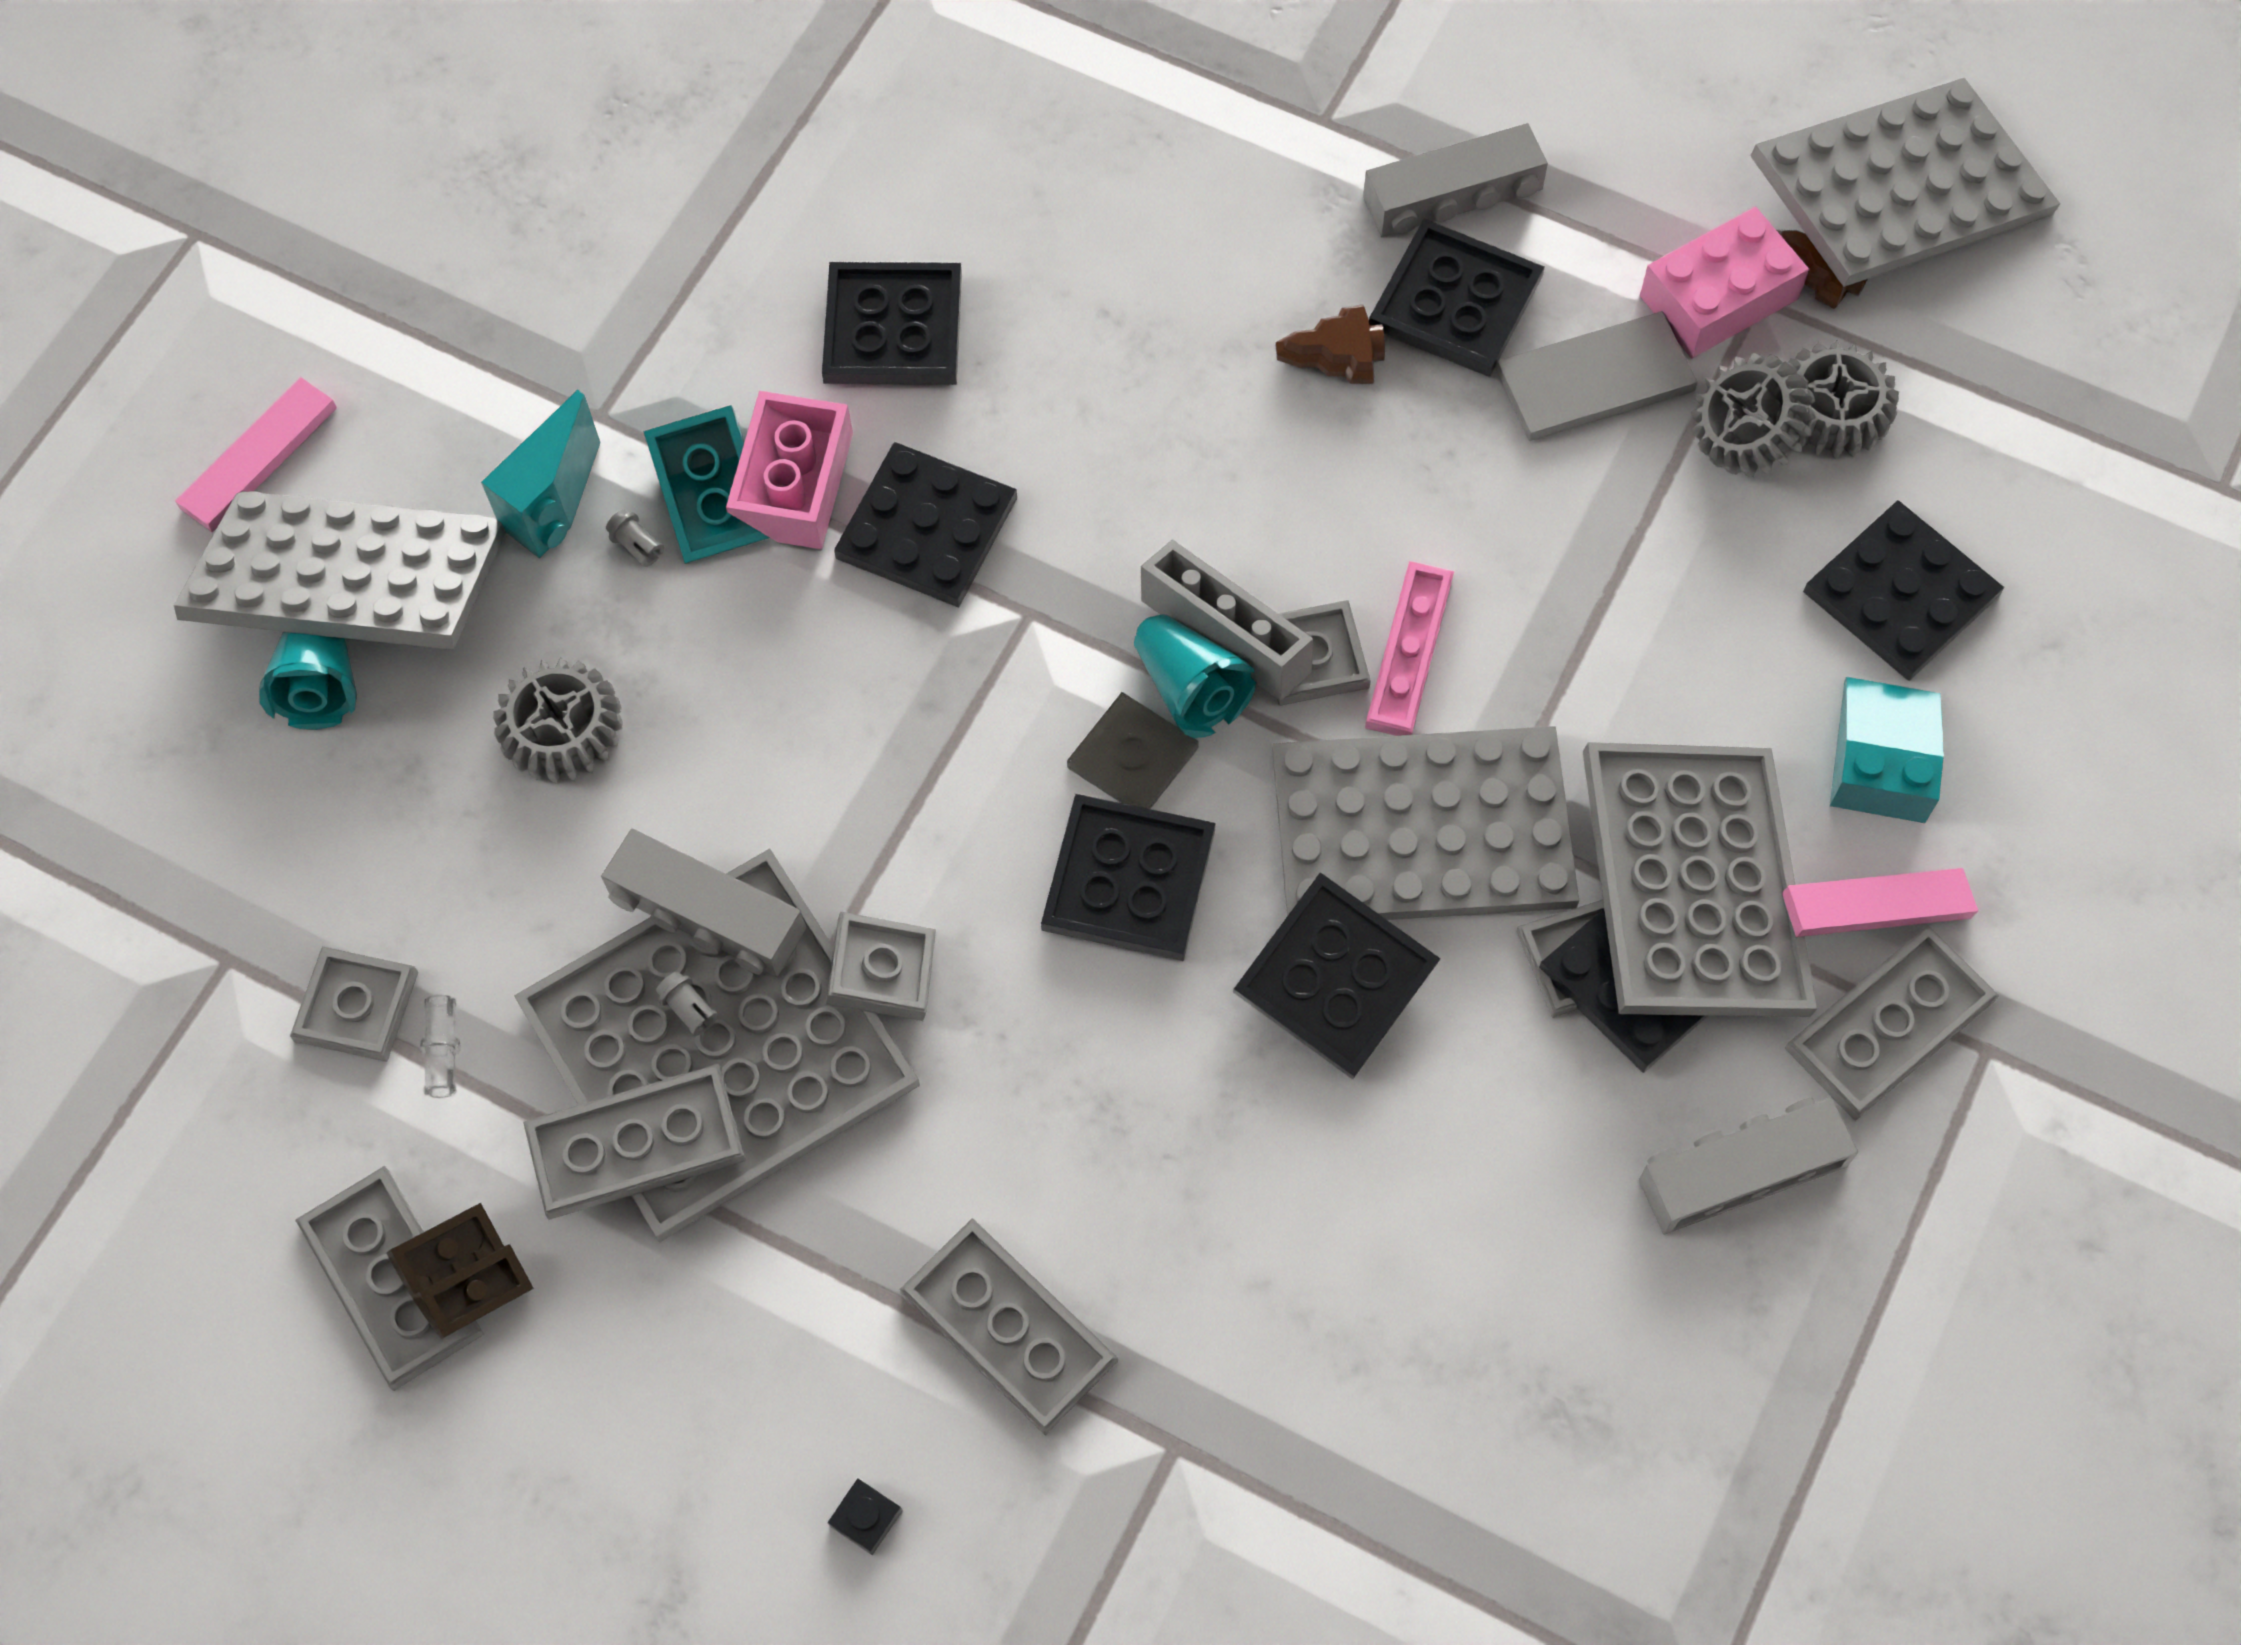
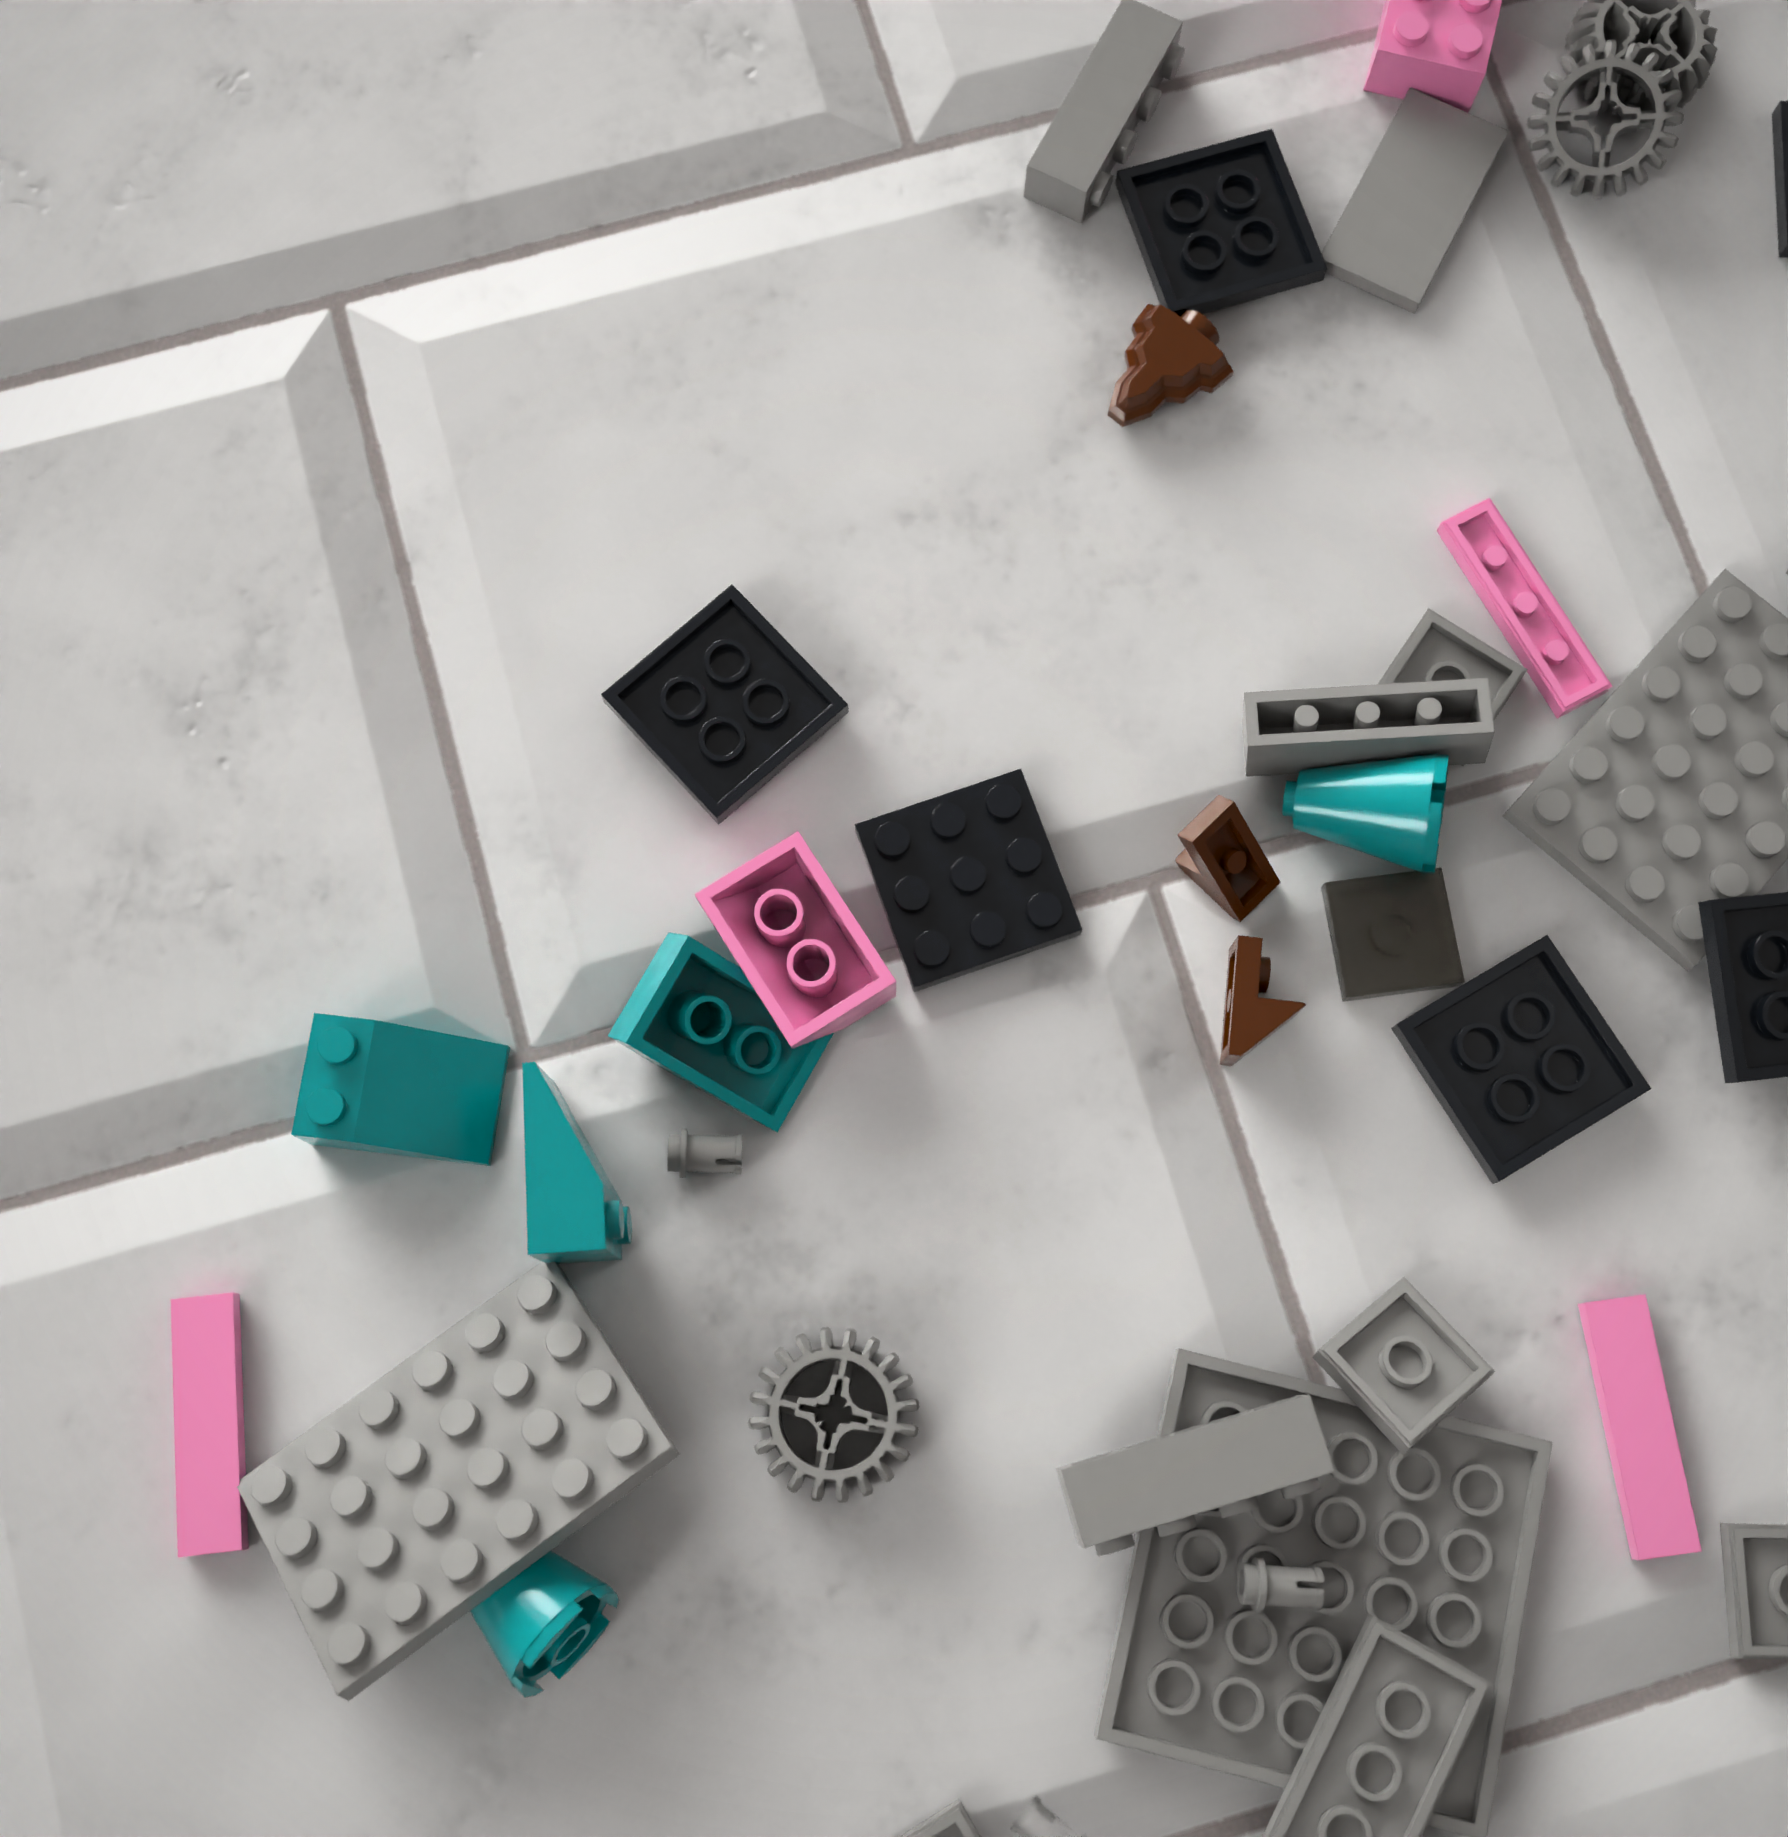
camera: 45 degrees left, 10 degrees up
(510, 366) = (400, 1090): none -> teal slope
(981, 1126) = (1639, 1428): none -> bright pink tile
(997, 720) = (1247, 1017): none -> reddish brown slope
(1075, 626) = (1226, 859): none -> reddish brown slope

